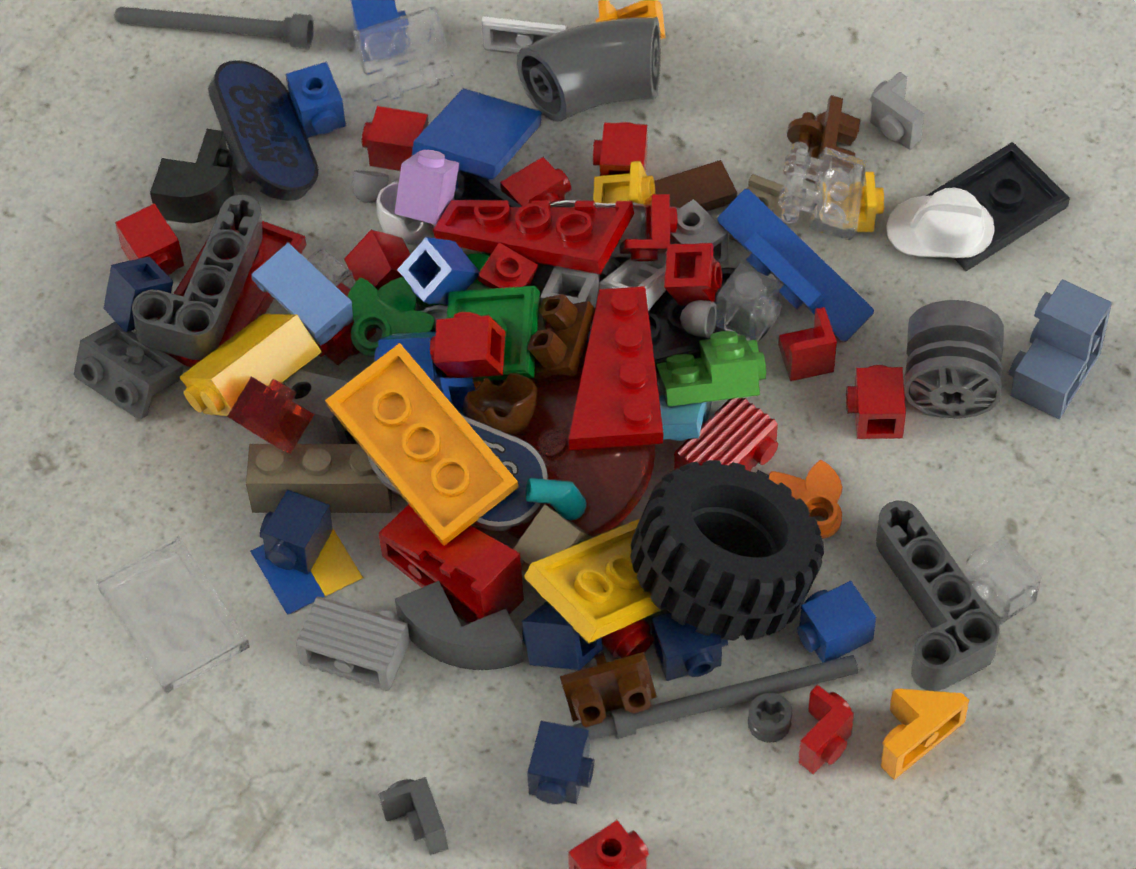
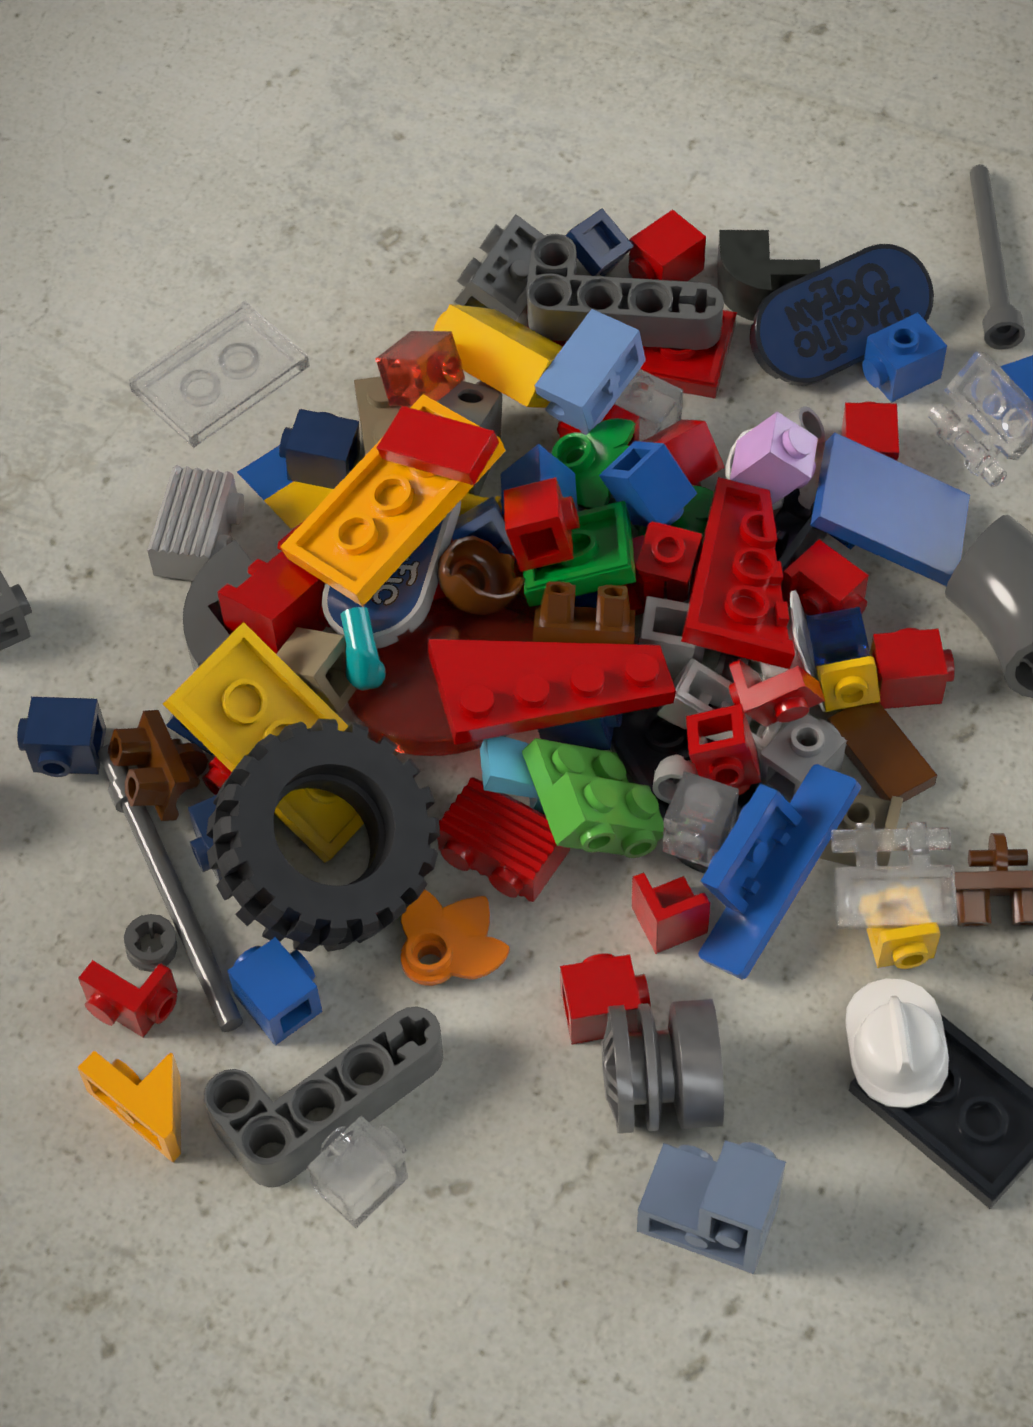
camera: 80 degrees right, 0 degrees up
(394, 389) = (438, 445): none -> red tile
(591, 185) = (837, 636): none -> clear blue tile

